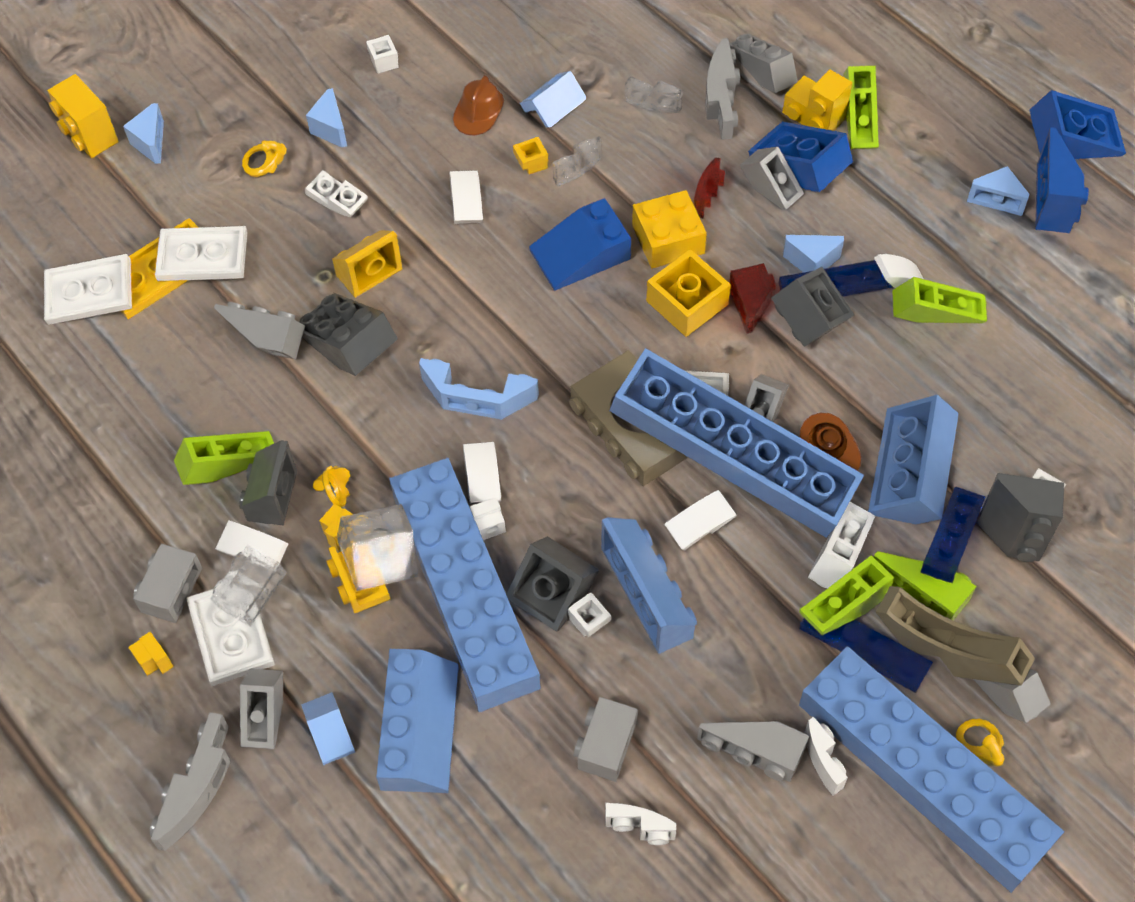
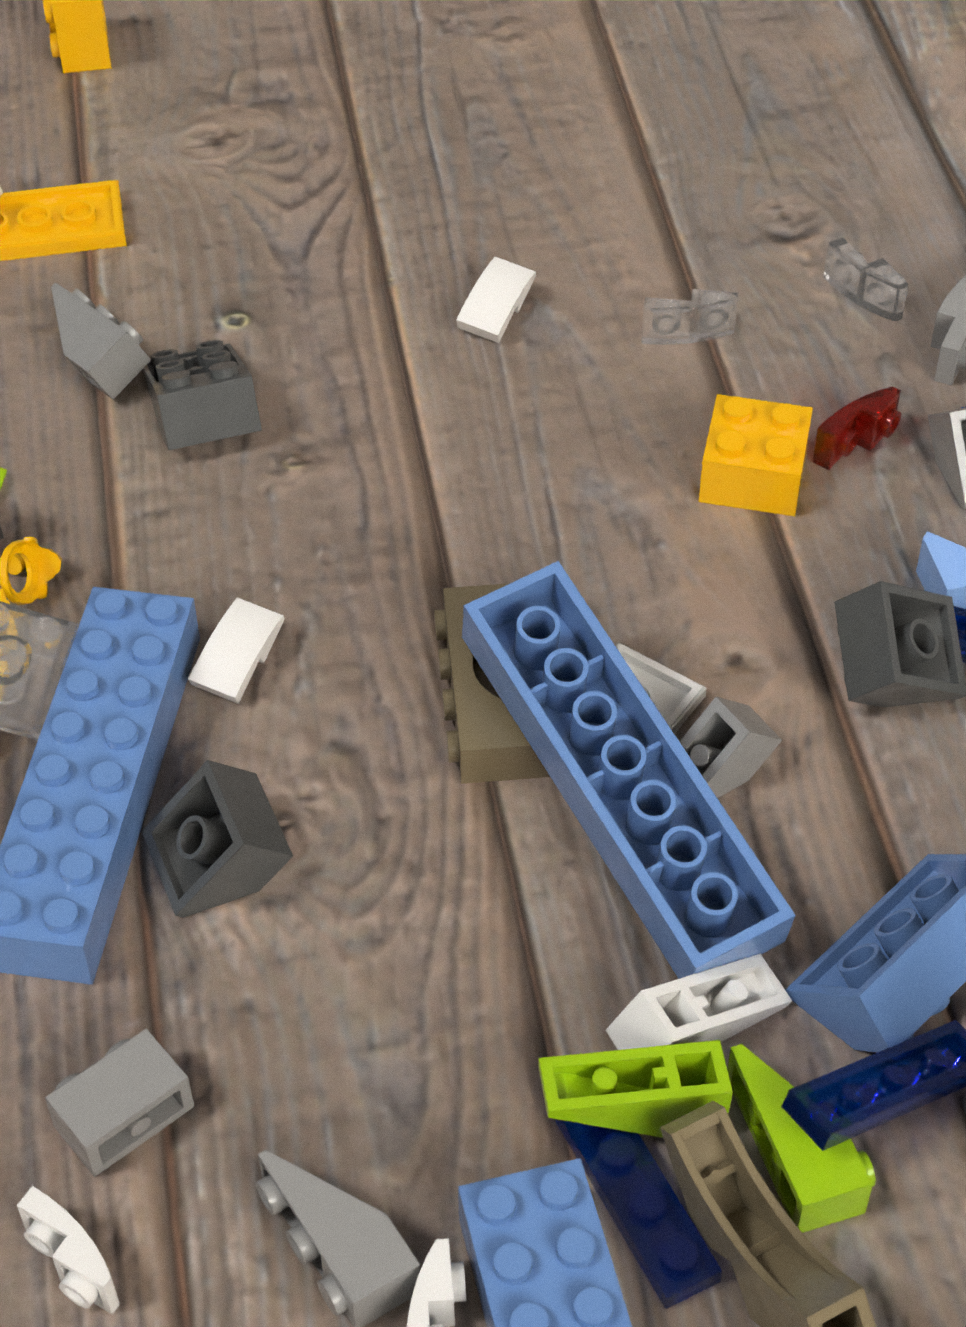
camera: 30 degrees right, 10 degrees down
(146, 132) = (150, 64): light blue slope -> none
(201, 253) = (95, 223): white tile -> none
(274, 156) = (283, 151): yellow piece -> none
(325, 120) = (385, 135): light blue slope -> none
(335, 196) = (326, 228): white slope -> none
(368, 262) = (296, 320): yellow slope -> none
(383, 54) = (520, 91): white piece -> none
(478, 107) = (606, 201): dark orange piece -> none
(488, 518) = (195, 712): white piece -> none
(518, 392) = (359, 572): light blue slope -> none
(531, 155) = (627, 284): yellow piece -> none
(555, 98) = (719, 232): panel -> none
(582, 245) = (613, 425): blue slope -> none
(586, 608) = (232, 912): white piece -> none
(646, 583) = (347, 909): medium blue slope -> none
(688, 292) = (717, 546): yellow brick -> none
(700, 519) = (503, 862): white slope -> none
(751, 293) = (818, 581): clear red slope -> none
(833, 437) = (790, 846): dark orange piece -> none

